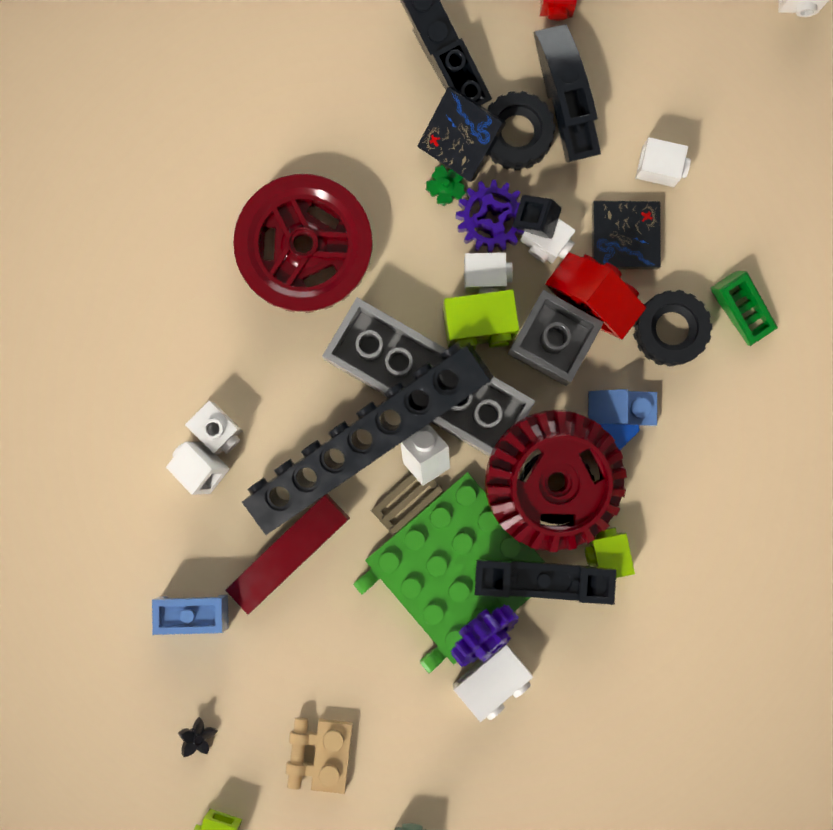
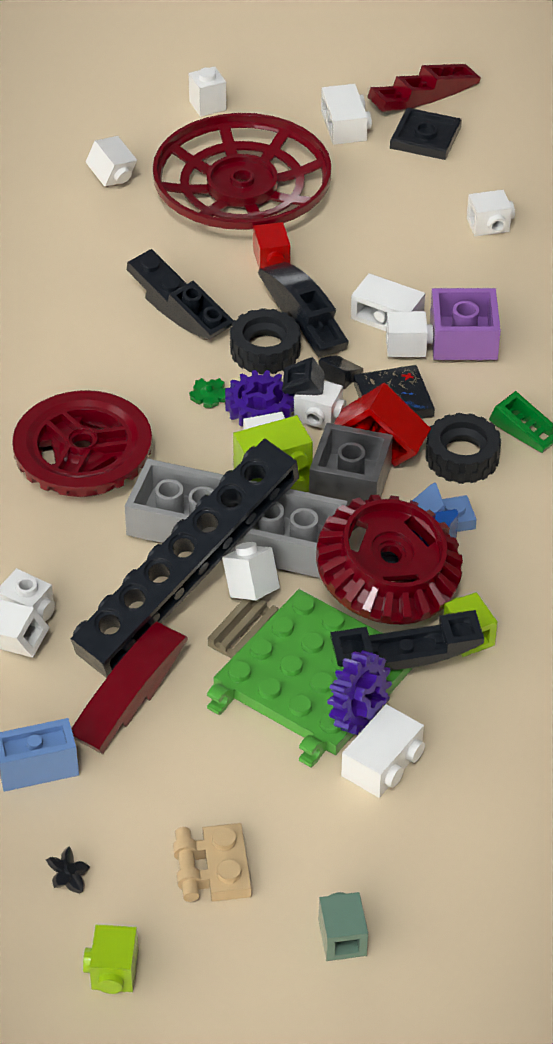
camera: 15 degrees left, 40 degrees down
(461, 134) = (213, 344): black tile -> none
(582, 186) = (339, 370): none -> black slope
(655, 107) = (378, 296): none -> white brick
(725, 163) = (465, 324): none -> medium lavender brick

